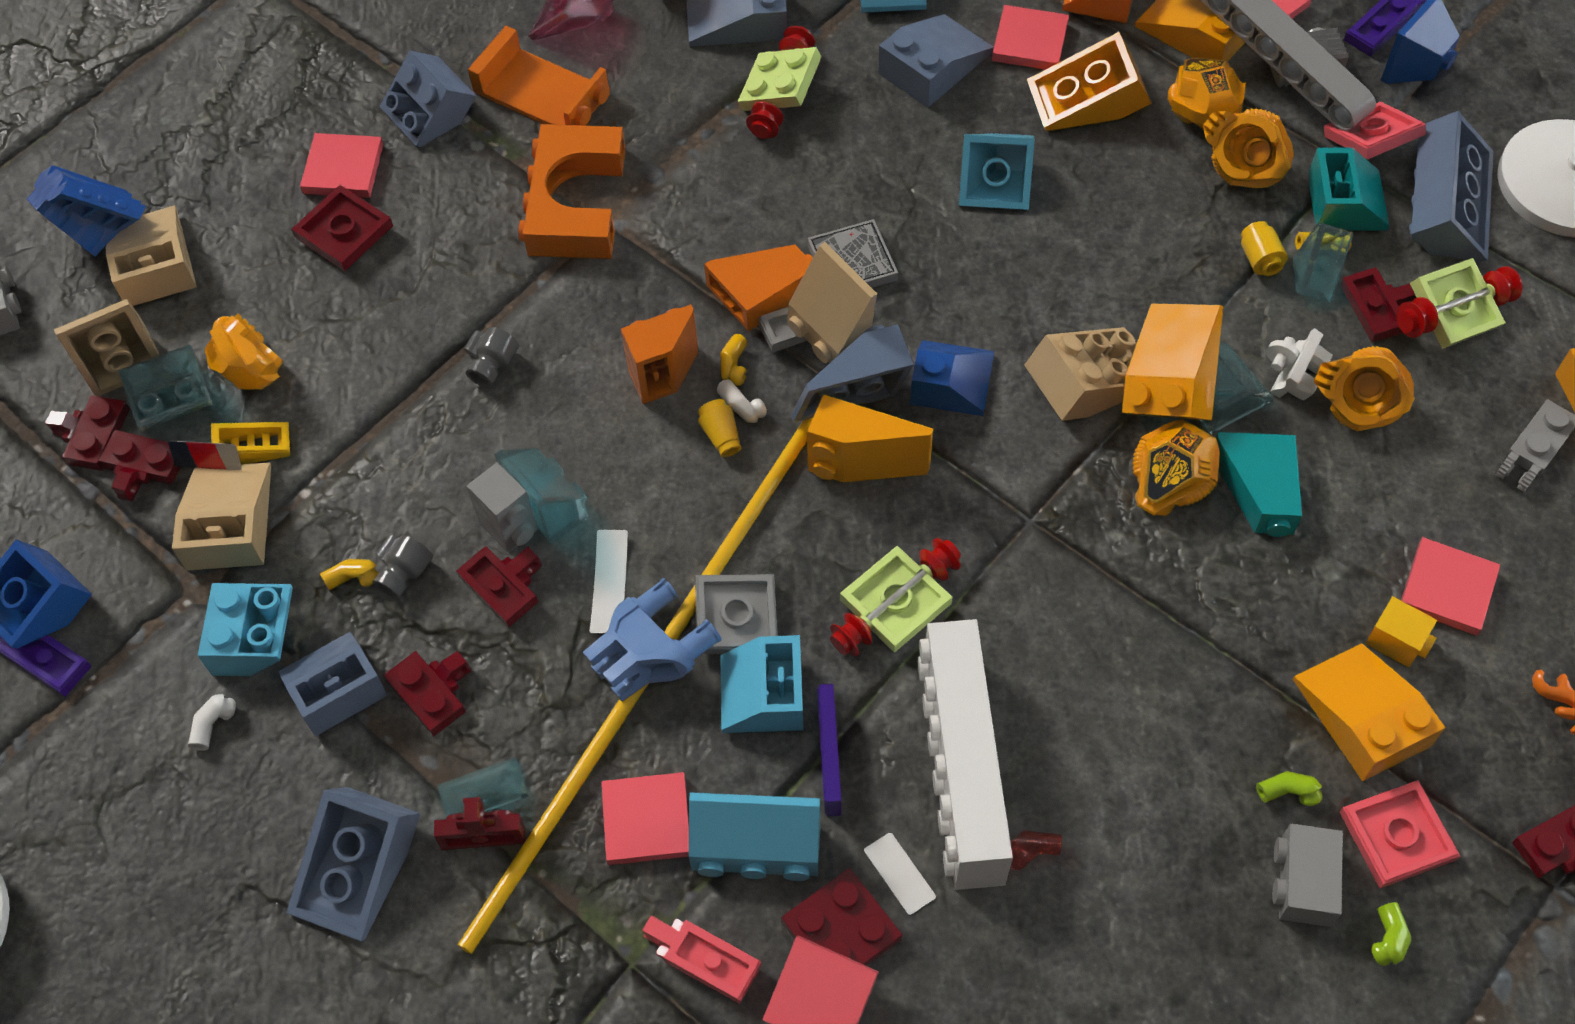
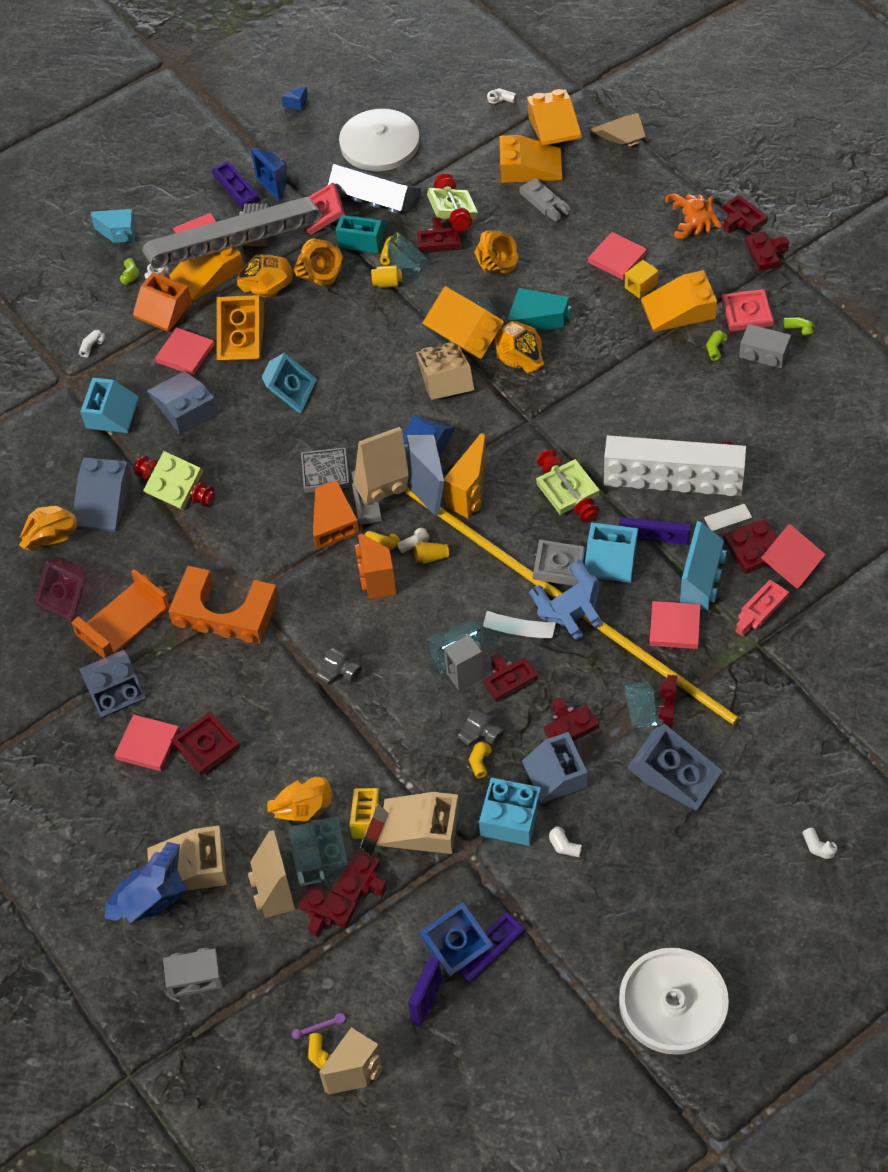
camera: 75 degrees left, 5 degrees down
(1293, 361) = (467, 280): white hips -> none

